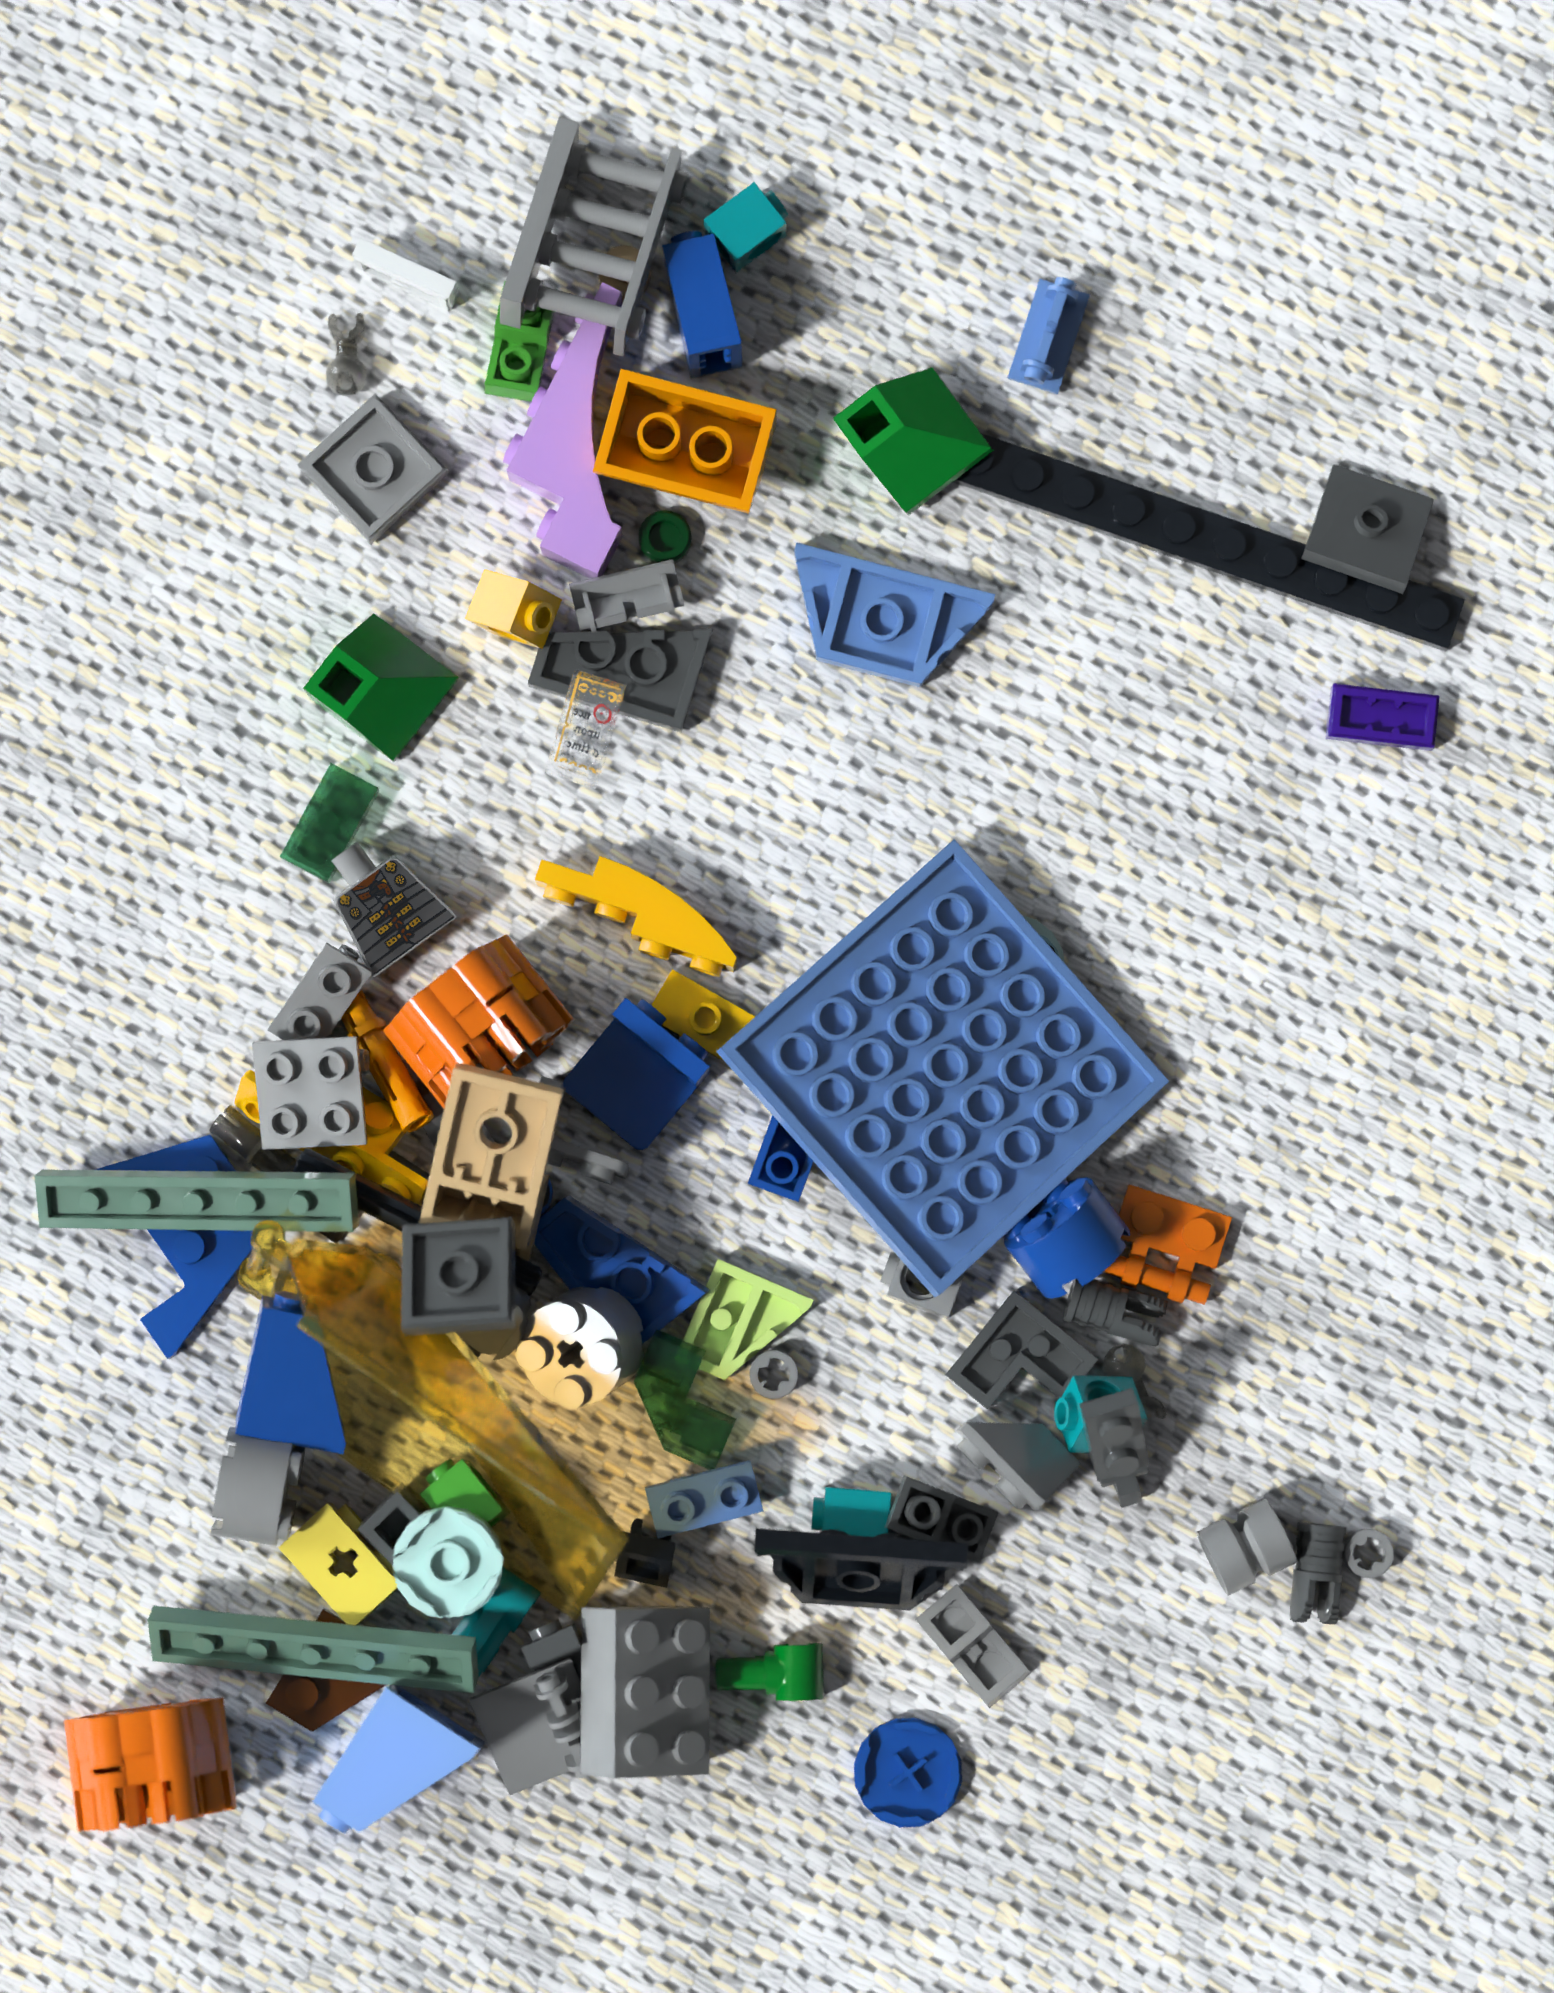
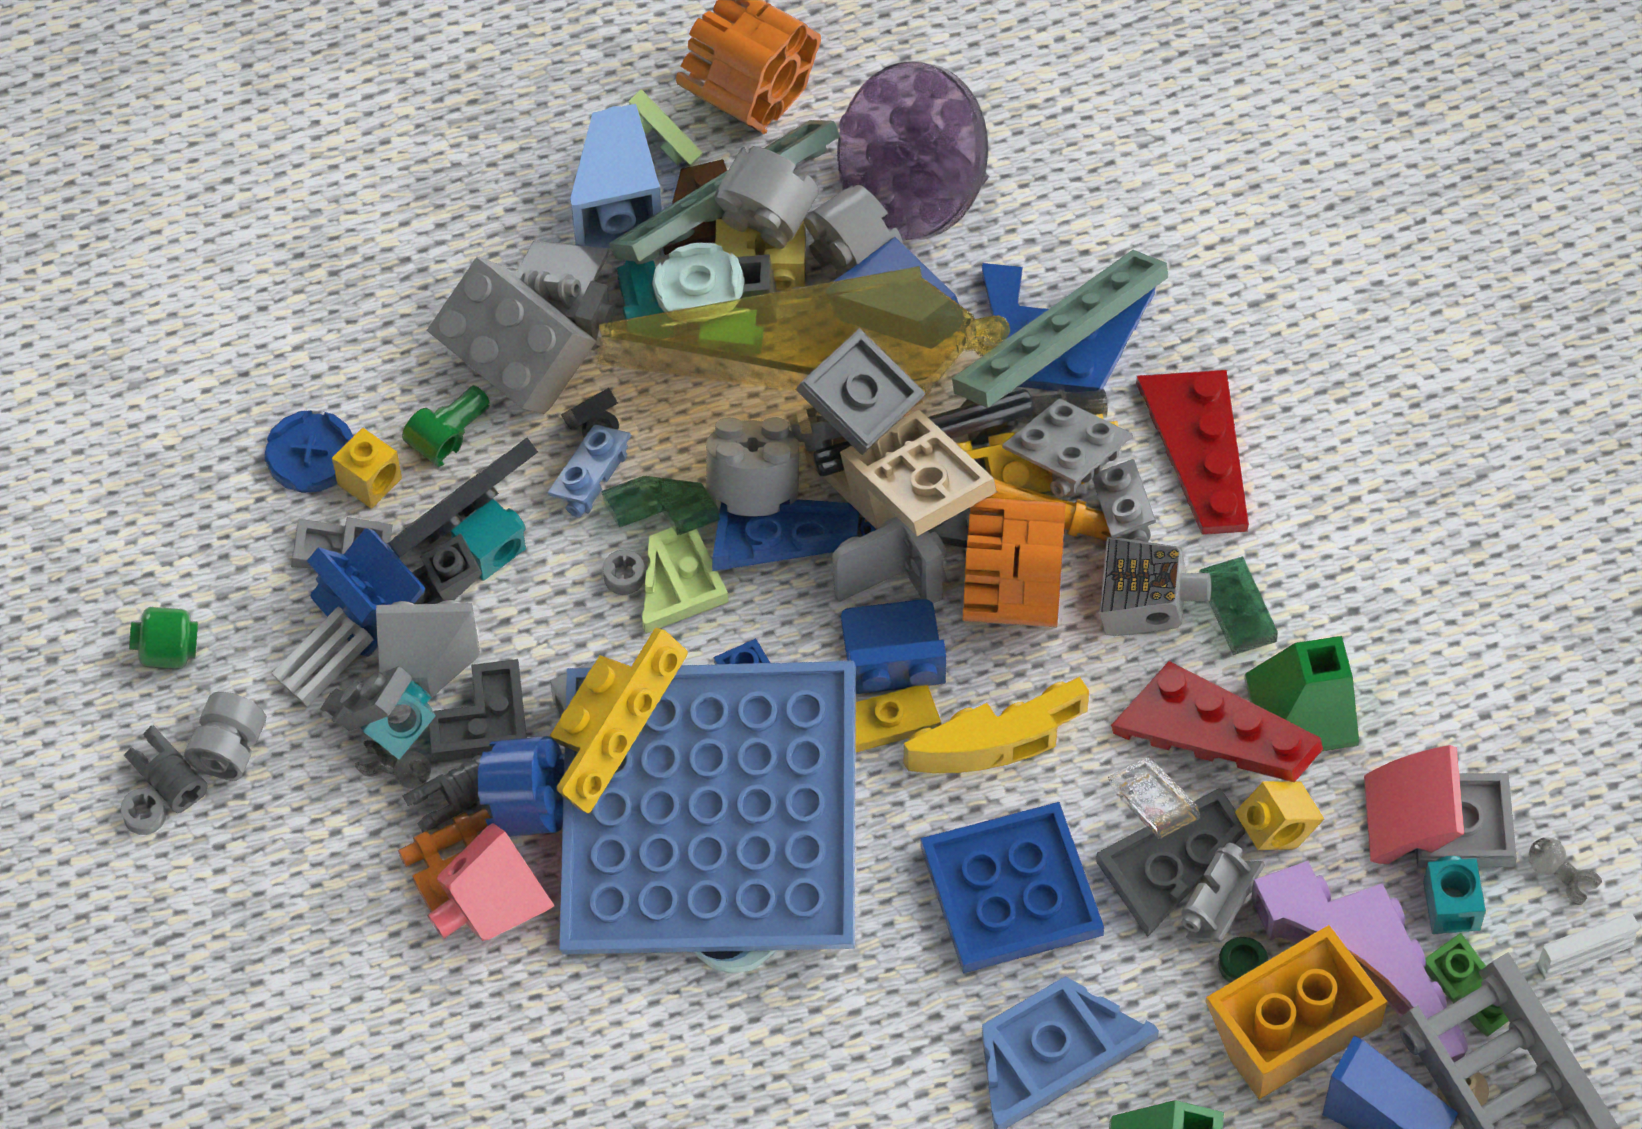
camera: 135 degrees right, 25 degrees down
(113, 1511) = (916, 146): none -> clear purple bracket
(177, 1011) = (1201, 444): none -> red wing
(288, 1783) = (676, 143): none -> yellowish green wing
(307, 1583) = (765, 195): none -> light grey brick
(403, 509) = (1414, 804): none -> coral slope
(460, 394) = (1454, 913): none -> teal brick
(474, 745) = (1214, 723): none -> red wing
(772, 774) = (1011, 887): none -> blue plate
(886, 1692) = (367, 467): none -> yellow brick
(954, 1212) = (610, 715): none -> yellow bracket
(1006, 1567) = (361, 580): none -> blue bracket
(1139, 1548) = (317, 651): none -> white tile
(1179, 1180) = (488, 888): none -> coral torso
(1205, 1700) = (164, 637): none -> green head

